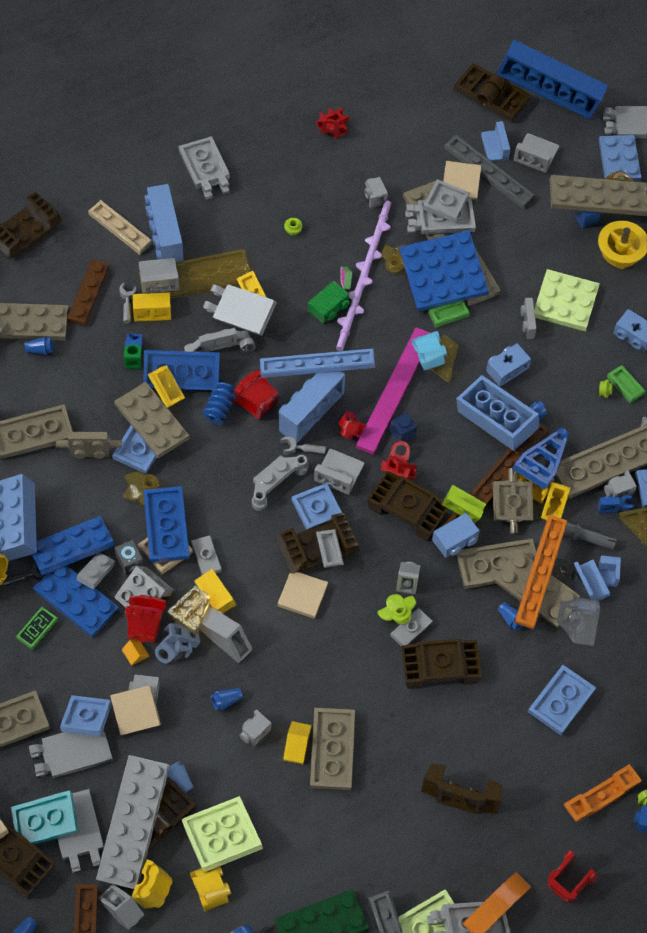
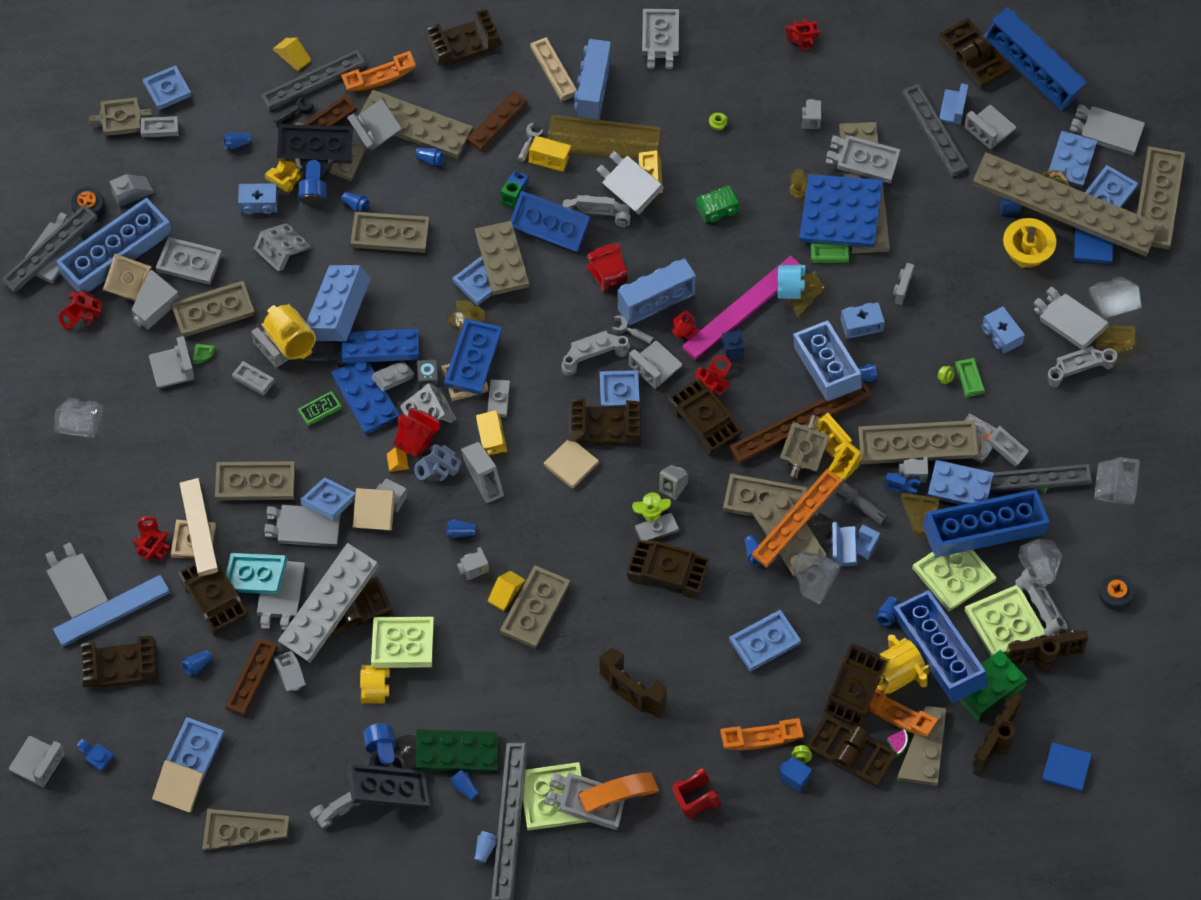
camera: 25 degrees right, 0 degrees up
(89, 444) = (434, 260): dark tan plate -> none
(154, 886) = (323, 664): yellow cylinder -> none
(159, 275) = (567, 126): light grey bracket -> none
(166, 386) = (528, 231): yellow hinge -> none
(179, 775) = (388, 580): medium blue cone -> none
(190, 609) = (460, 439): clear yellow wing -> none
(218, 401) = (570, 262): blue piece -> none
(317, 363) = (674, 256): medium blue tile -> none
(329, 548) = (612, 429): light grey tile -> none
(346, 276) = (745, 186): bright green tile -> none
(364, 267) = (762, 195): lavender plant -> none
(446, 200) = (873, 144): light grey tile -> none
(456, 535) = (733, 458): medium blue brick -> none
(462, 503) = (755, 433): lime panel -> none
(463, 176) = (901, 130): tan tile -> none
(535, 471) = (836, 427): blue plate -> none
(566, 300) = (950, 278): yellowish green plate -> none

